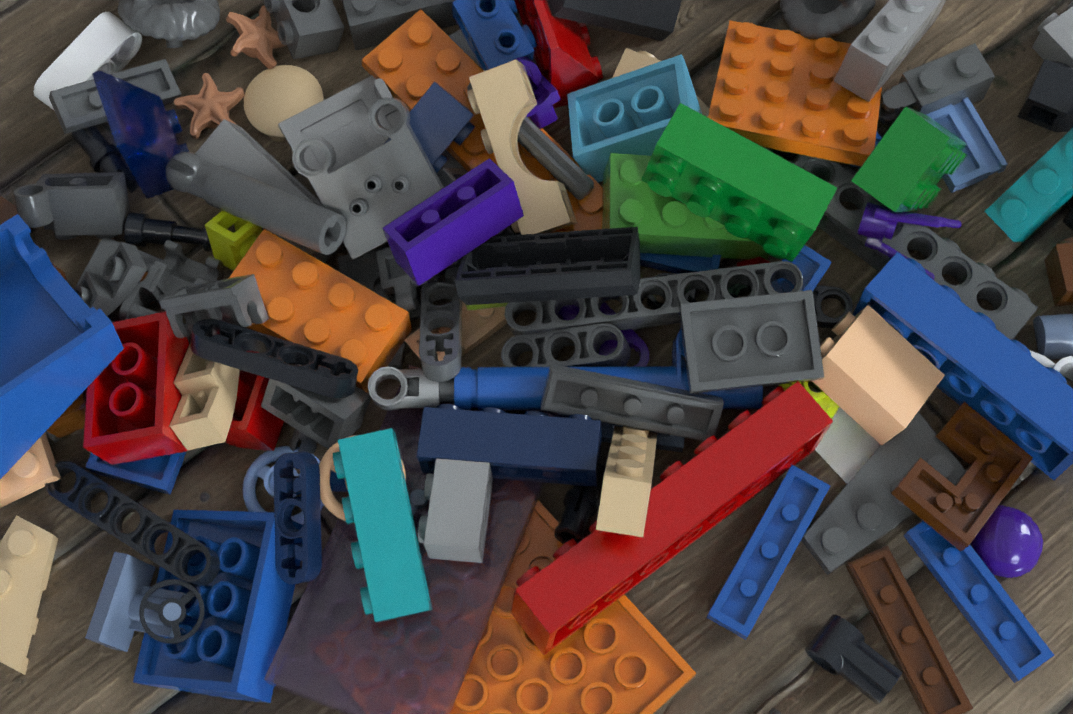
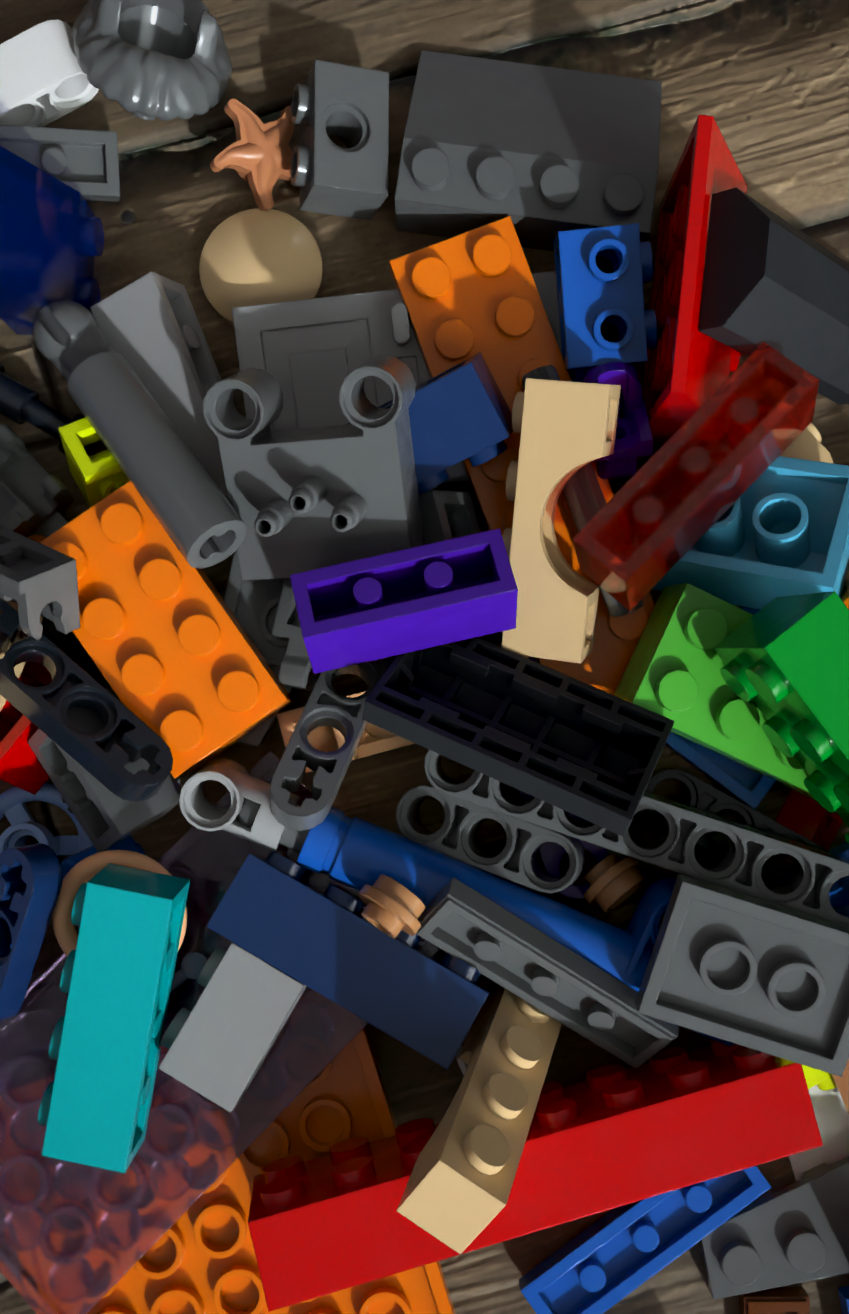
camera: 25 degrees right, 15 degrees up
(209, 106) = (153, 233): nougat animal -> none
(521, 394) = (391, 907): none -> medium nougat plate
(579, 505) = (389, 1095): black pin -> none
(588, 96) = (696, 475): none -> clear red brick
(651, 347) = (613, 881): none -> medium nougat plate

